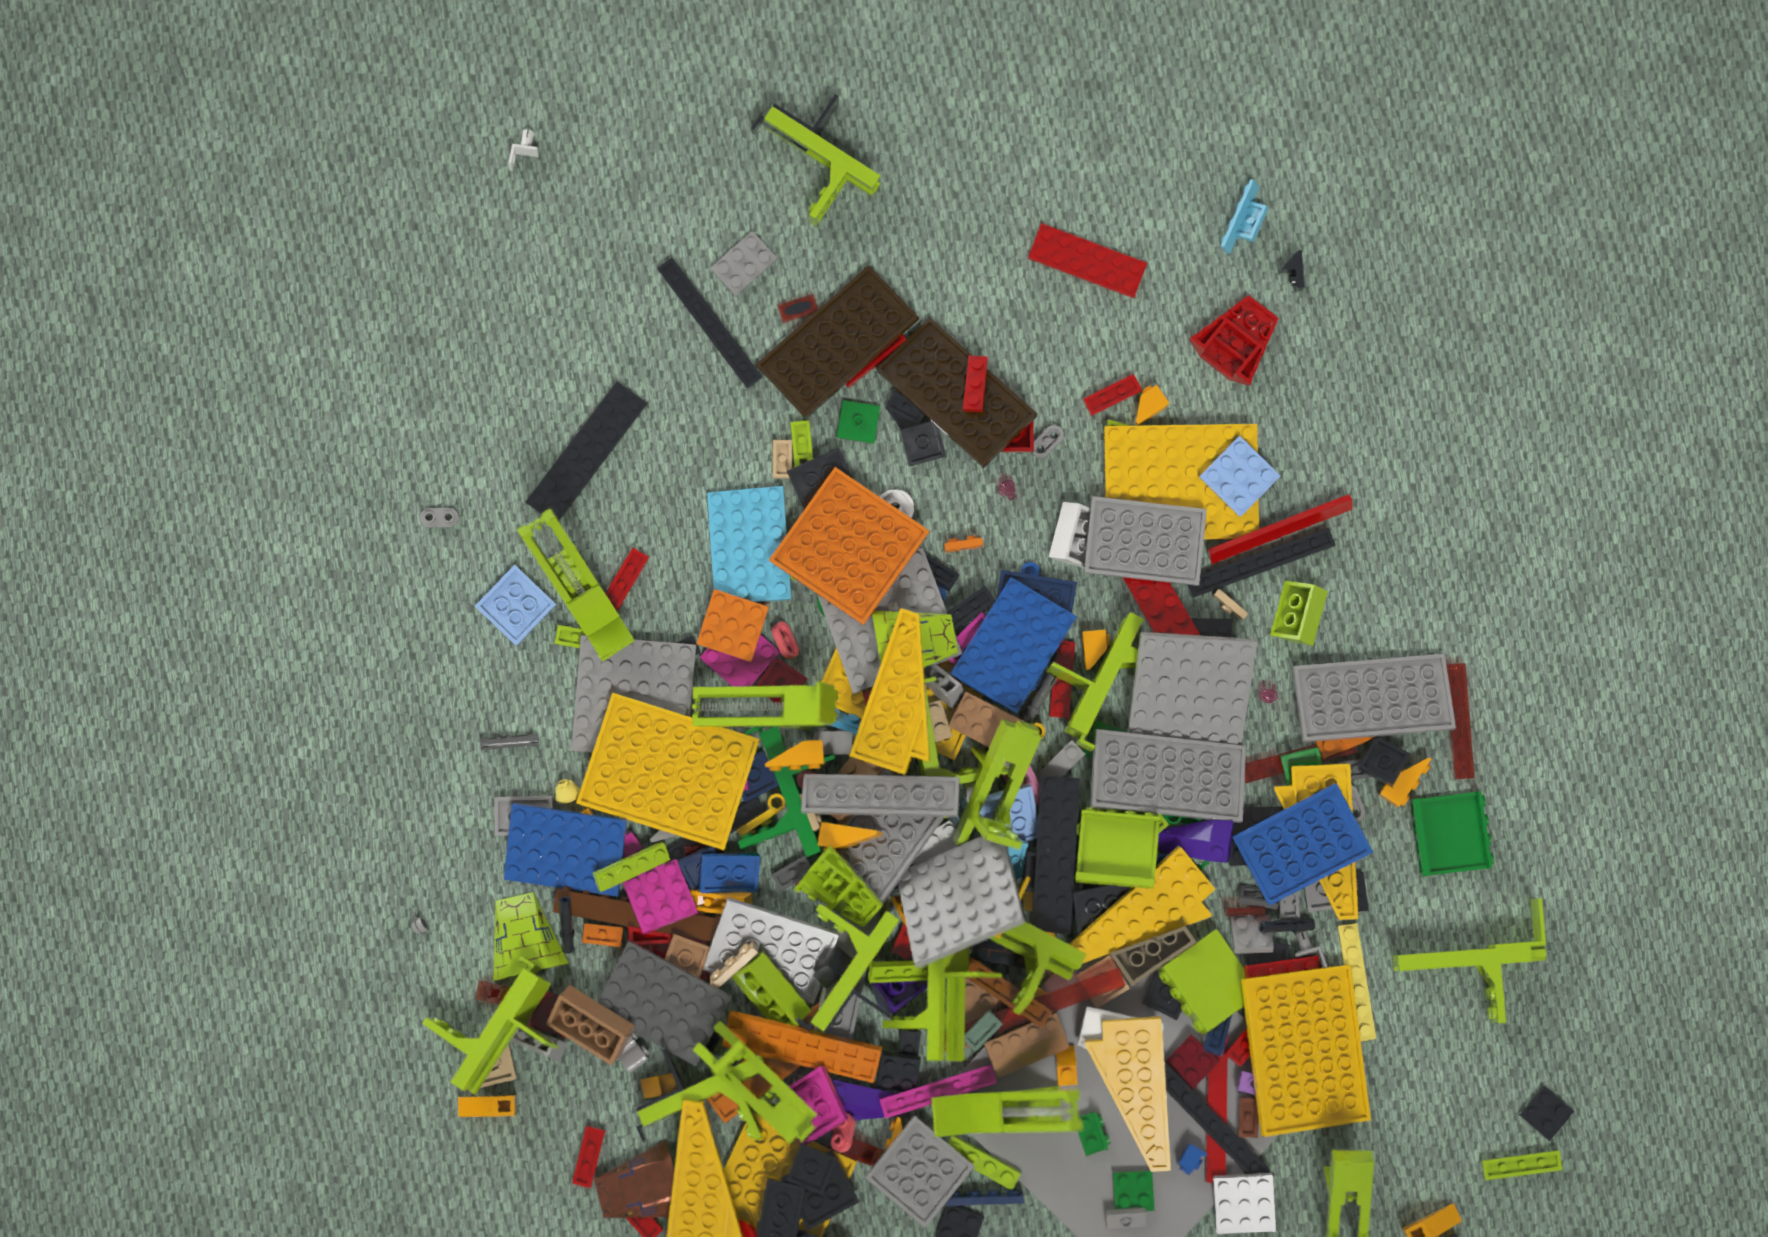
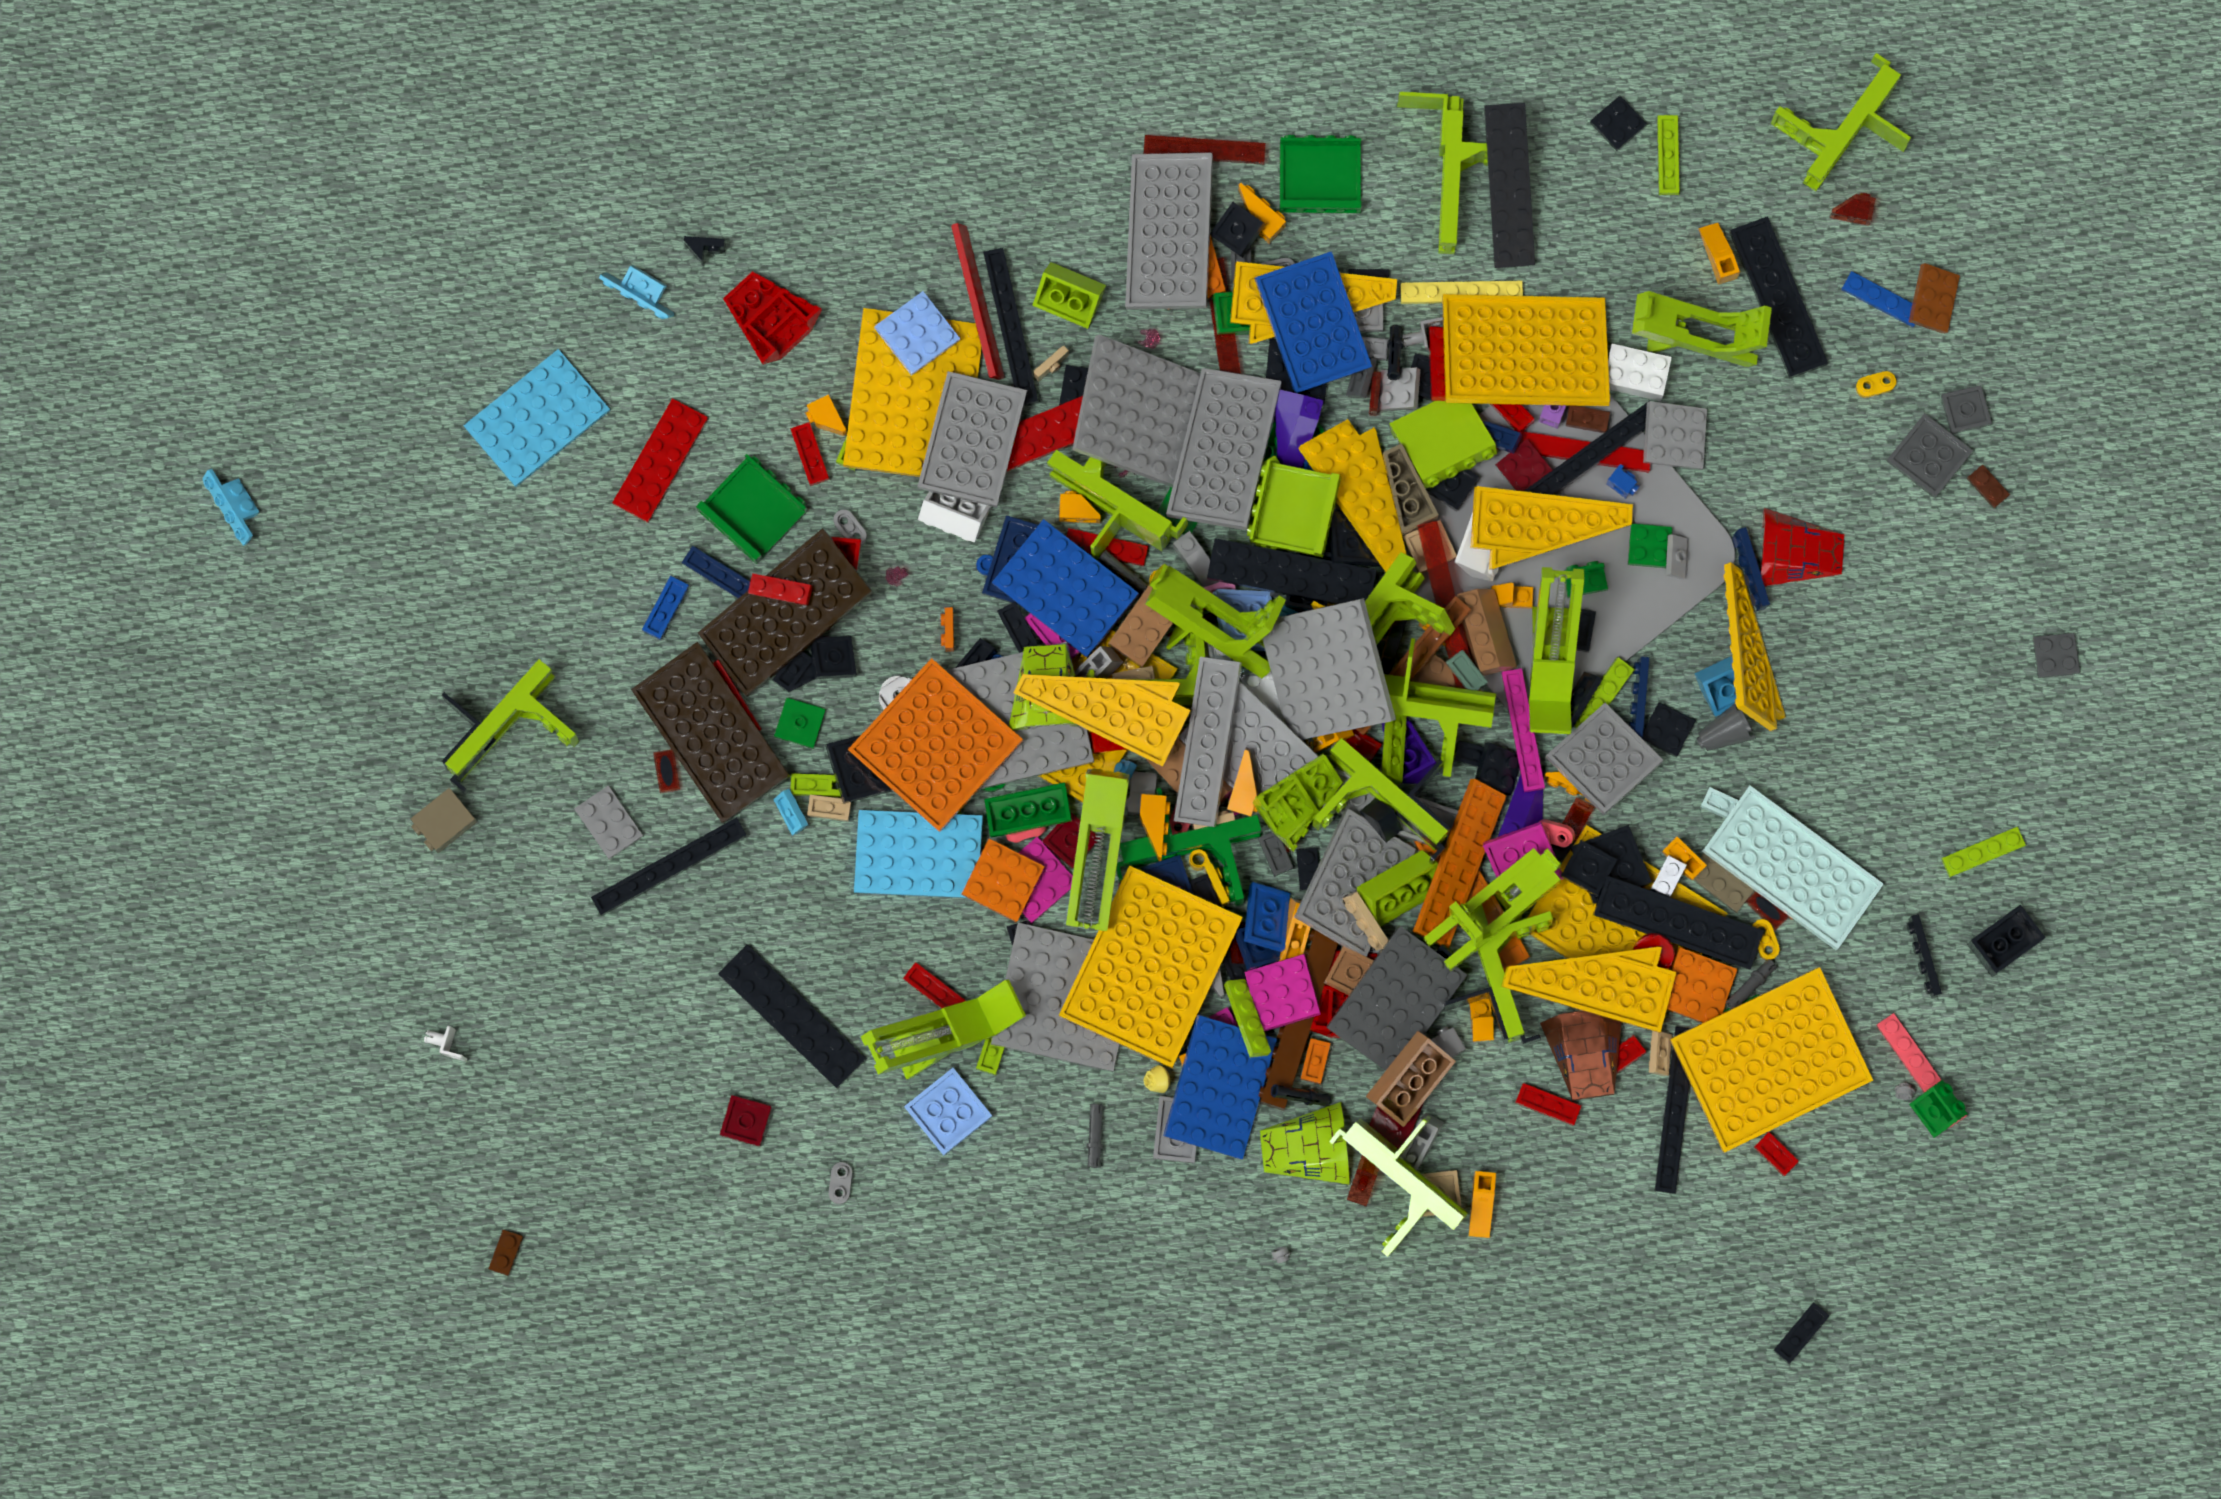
camera: 80 degrees left, 5 degrees down
(342, 230) = (505, 1252): none -> reddish brown plate
(485, 424) = (745, 1121): none -> dark red plate
(725, 116) = (442, 821): none -> dark tan brick
(773, 425) = (790, 811): none -> medium azure plate
(784, 905) = (1307, 864): none -> black plate
(802, 640) = (1028, 810): none -> green slope
(949, 285) = (665, 608): none -> blue plate
(979, 1143) = (1582, 694): none -> black plate
(988, 325) = (716, 572): none -> dark blue plate
(1045, 1139) = (1585, 630): none -> black tile
(1052, 350) = (753, 509): none -> green panel
(1111, 144) = (536, 418): none -> medium azure plate
(1301, 1160) = (1637, 372): none -> white brick
(1466, 1015) = (1509, 185): none -> black plate

